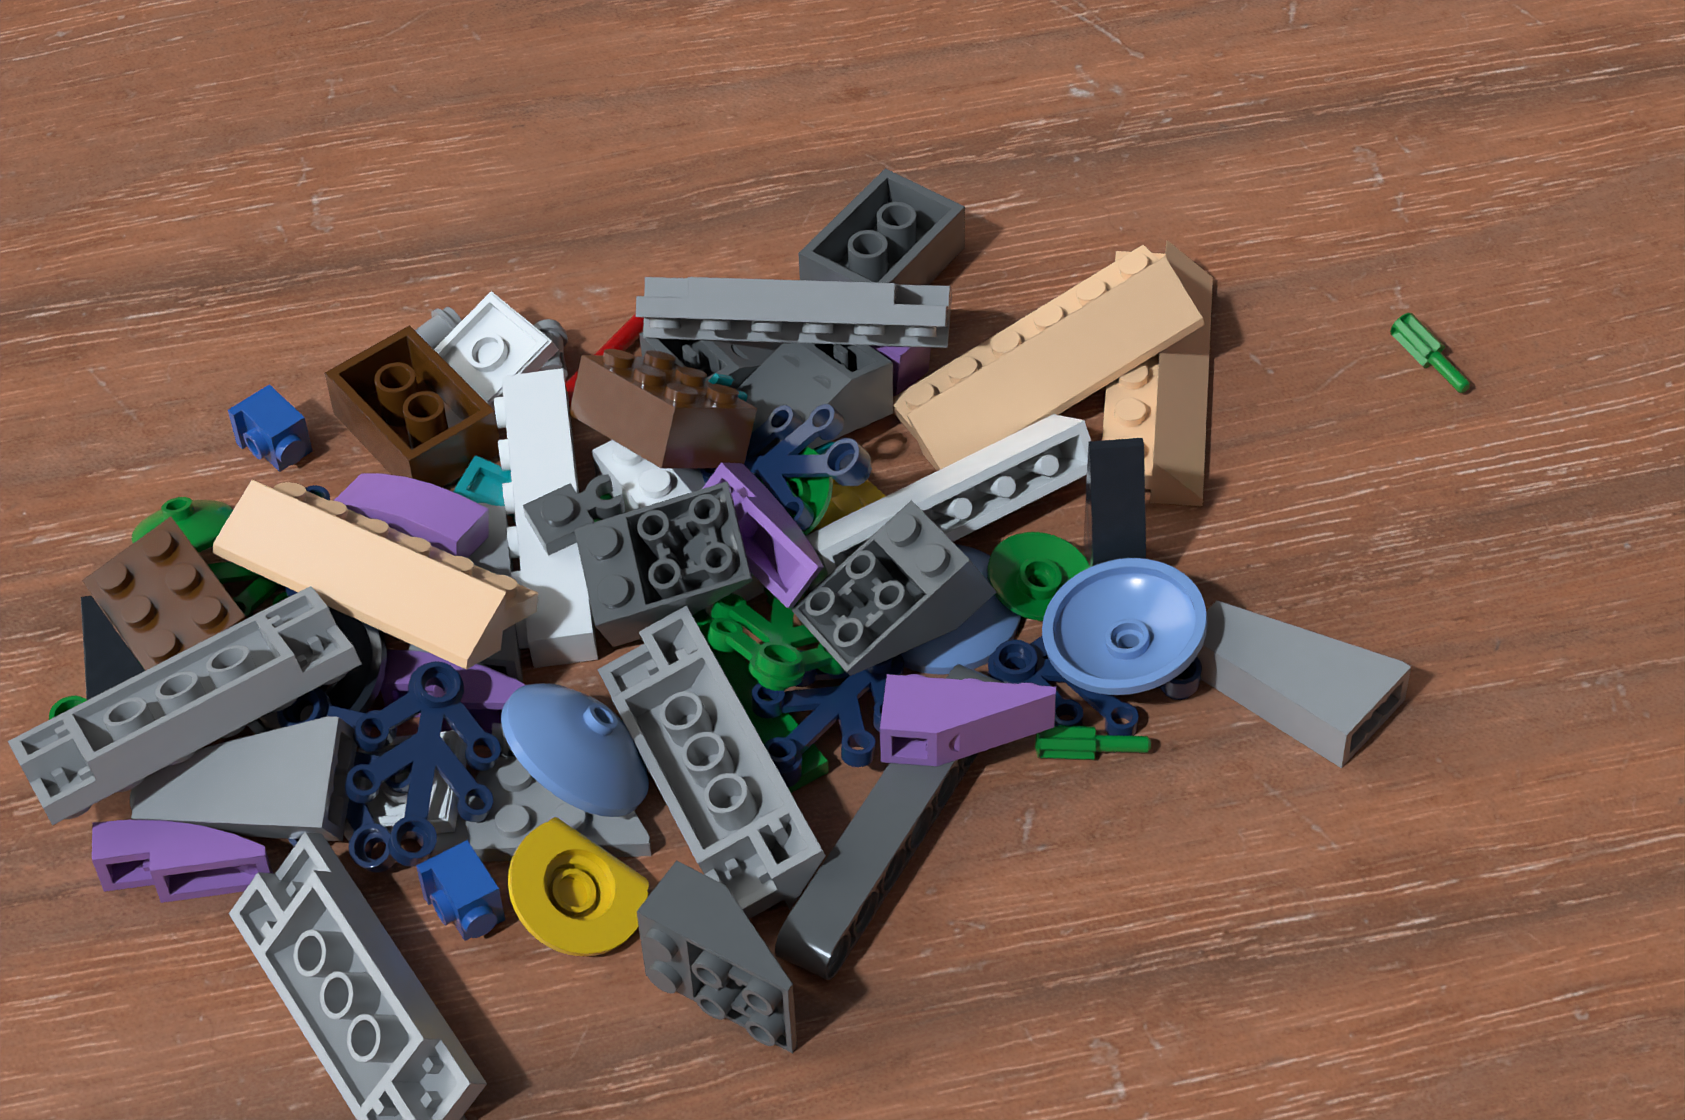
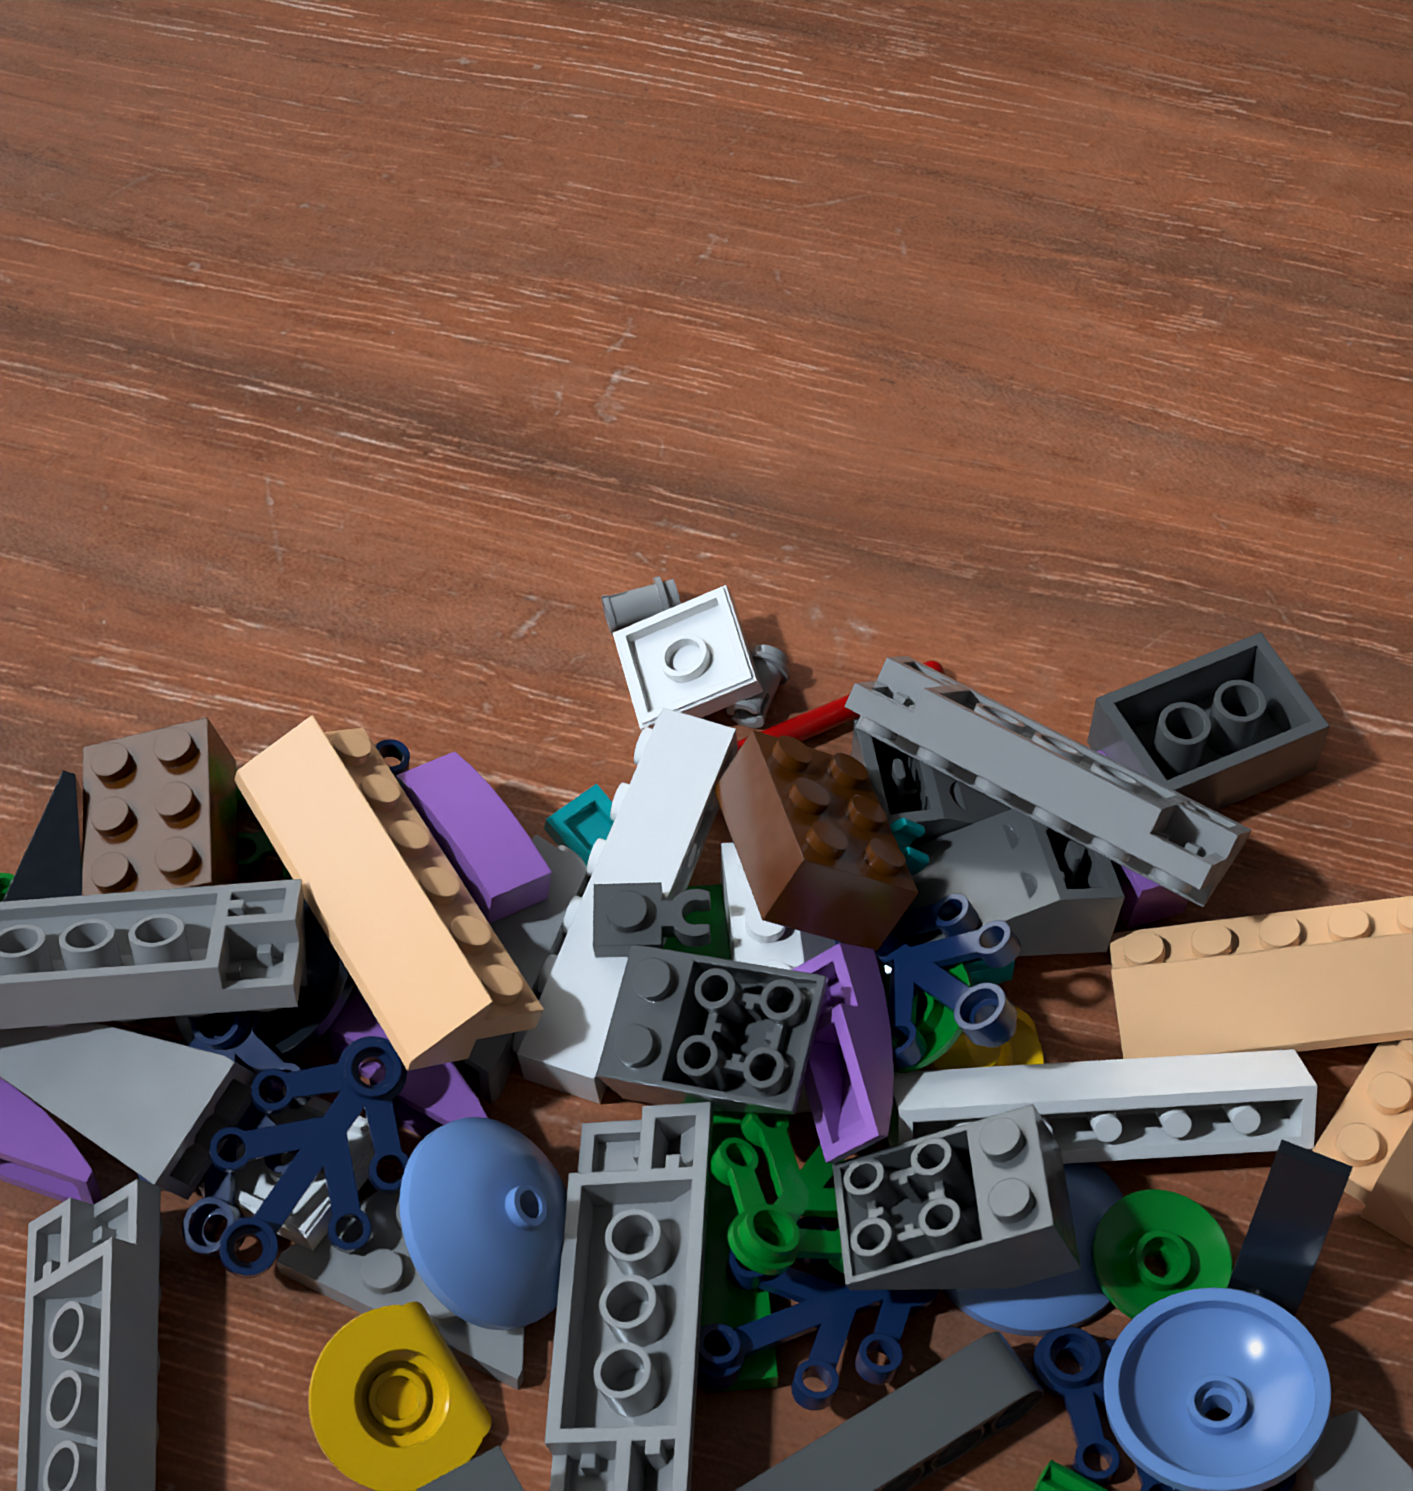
camera: 25 degrees right, 5 degrees up
(197, 519) = (247, 717): green dish -> none
(271, 428) = (401, 643): blue brick -> none
(412, 409) = (559, 697): reddish brown brick -> none
(461, 891) = (276, 1334): blue brick -> none
(951, 719) = (933, 1414): medium lavender slope -> none

